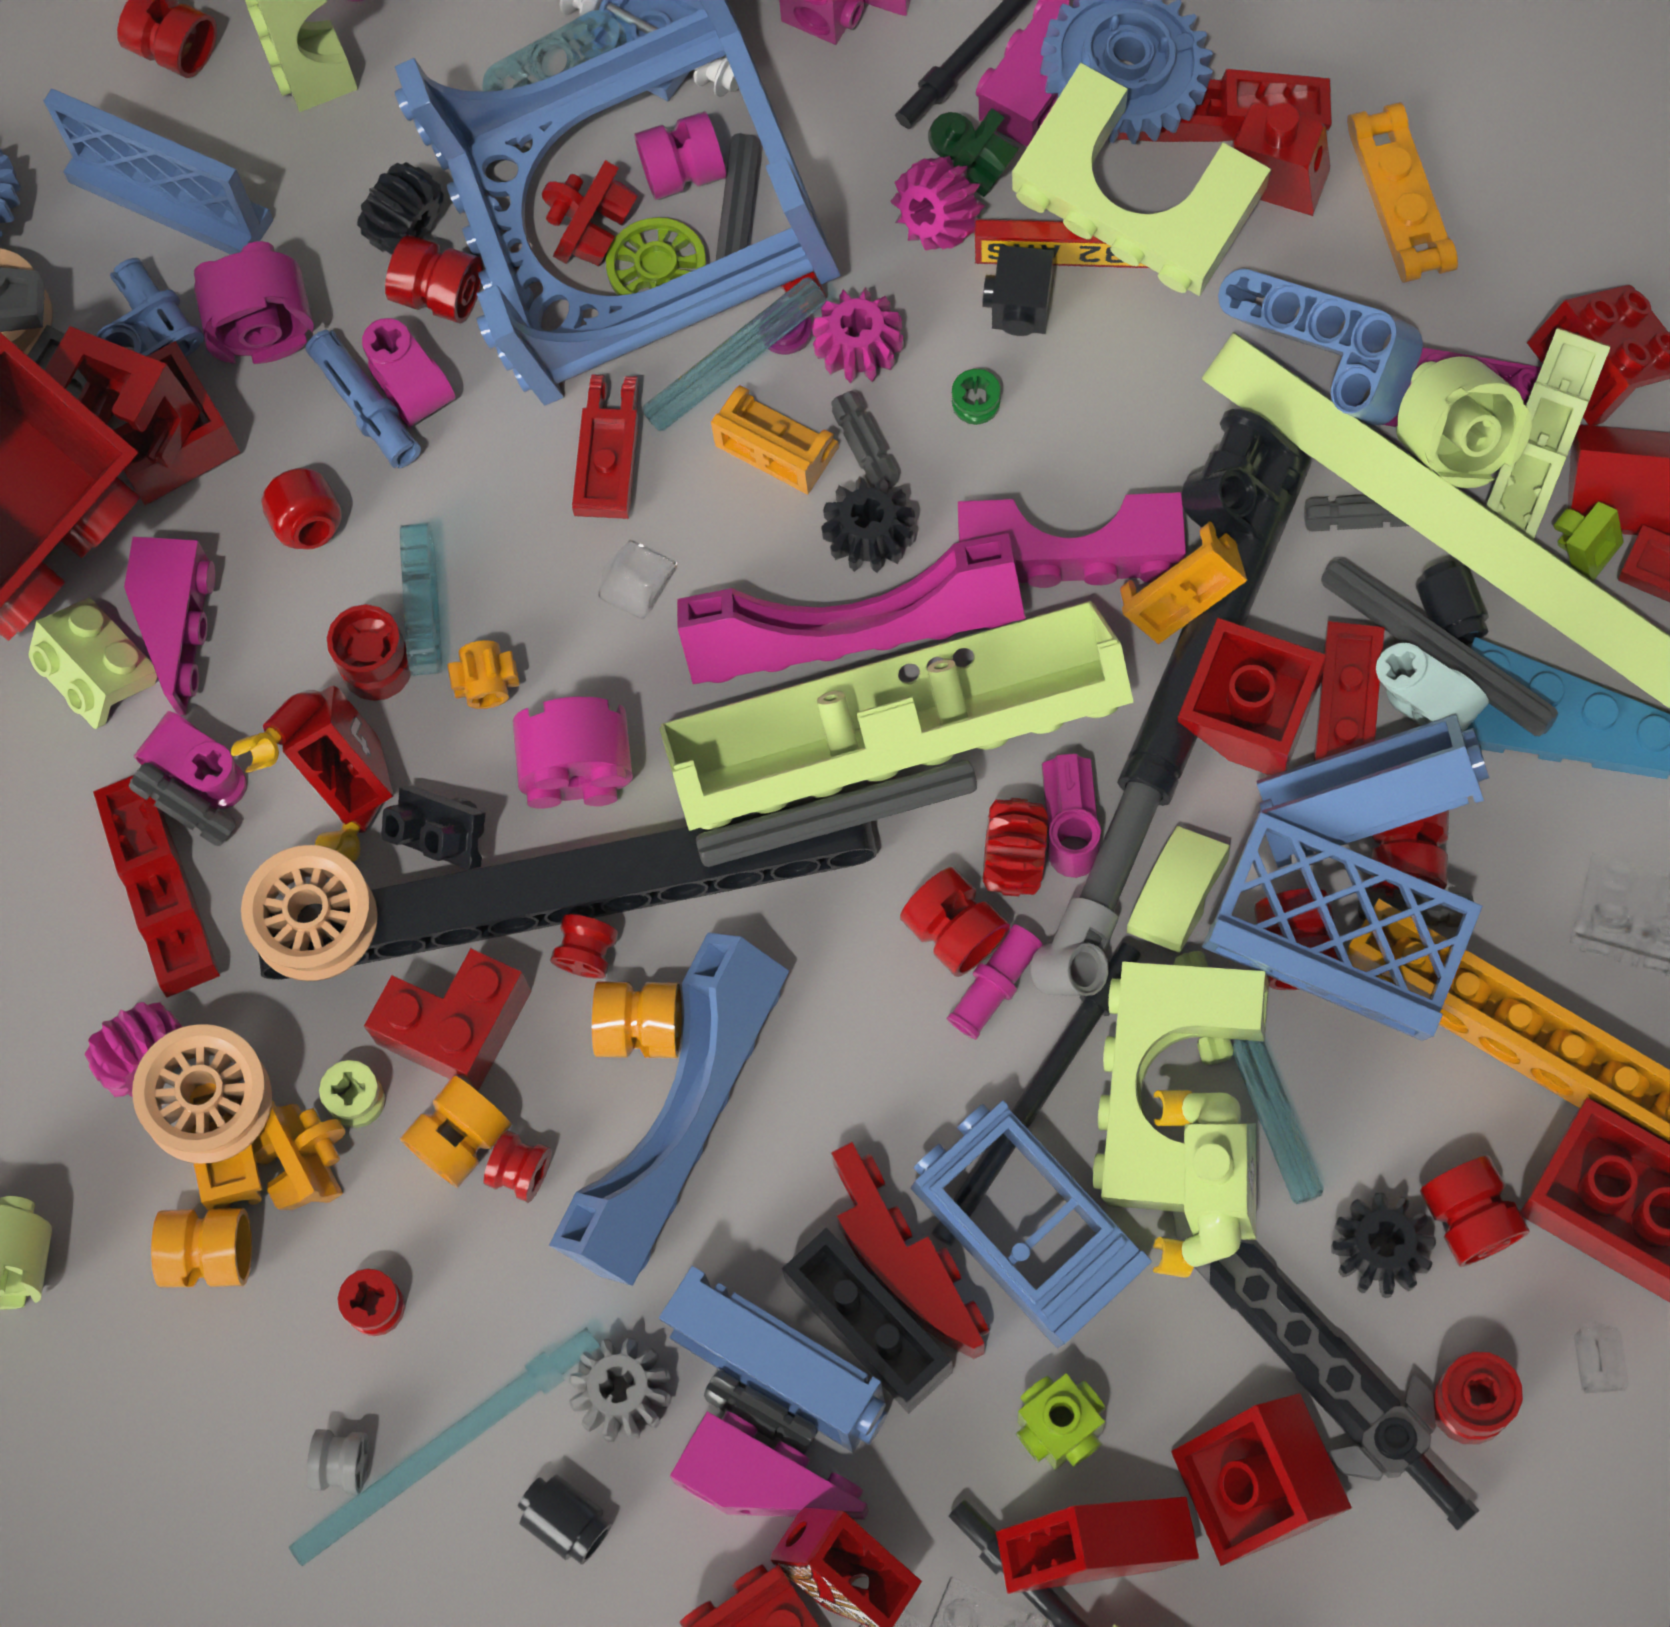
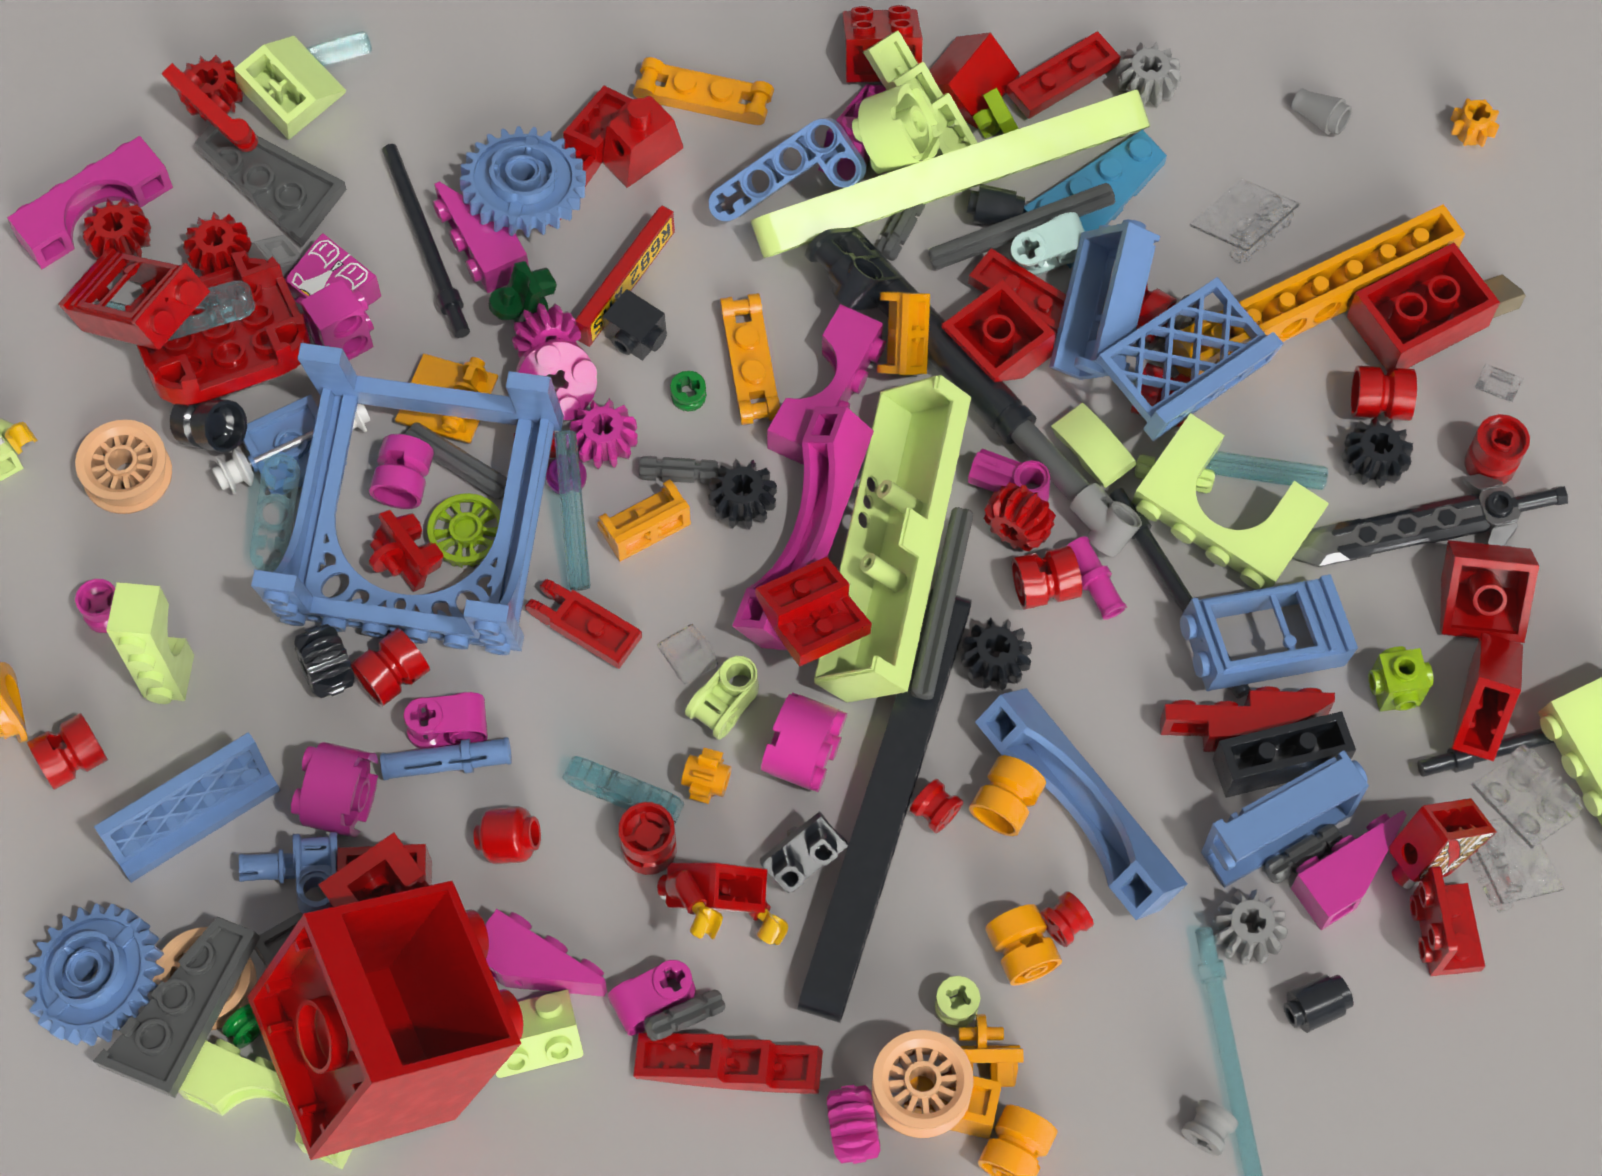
camera: 70 degrees left, 5 degrees down
(295, 865) = (814, 920): light nougat wheel -> none
(378, 1313) = (1107, 1066): red wheel -> none
(456, 1032) = (952, 913): red brick -> none
(585, 642) = (719, 702): none -> yellowish green piece
(729, 670) = (813, 611): none -> red slope
(799, 921) = (983, 645): none -> black gear
(824, 148) = (449, 374): none -> light orange hinge
(861, 249) = (577, 368): none -> plate
(1063, 438) = (750, 359): none -> light orange plate
(1176, 243) = (590, 250): yellowish green arch -> none
(1216, 1179) = (1310, 498): yellowish green torso -> none

